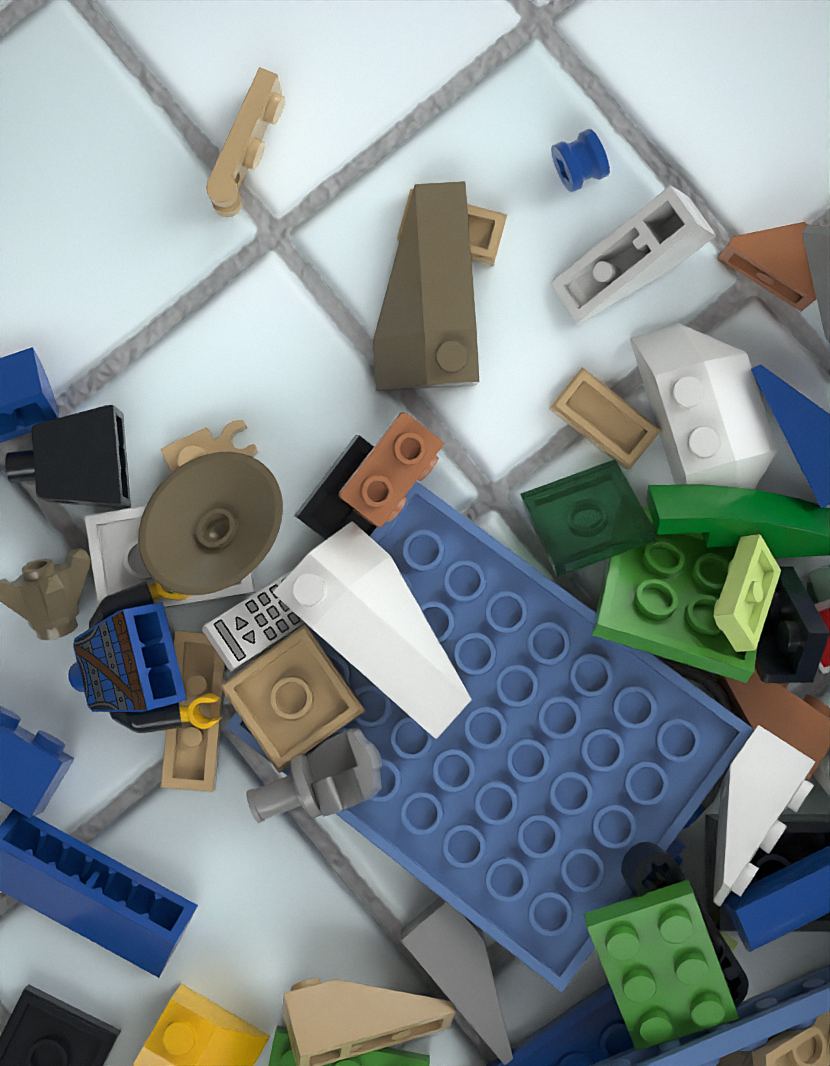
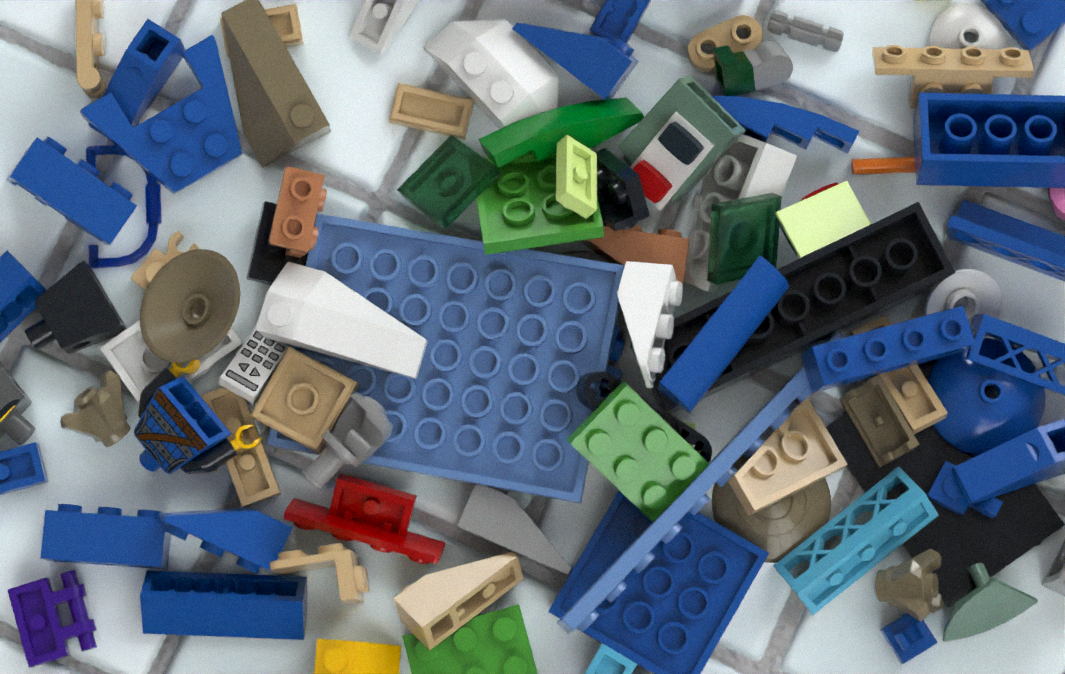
camera: 20 degrees left, 5 degrees down
(138, 817) = (239, 531): none -> blue slope
(140, 313) = (73, 190): none -> blue wedge
(227, 374) = (153, 213): none -> clear blue piece
(234, 907) = (351, 577): none -> tan bracket
(278, 218) = (144, 70): none -> blue slope
(300, 313) = (184, 138): none -> blue wing
(302, 872) = (368, 515): none -> red bracket

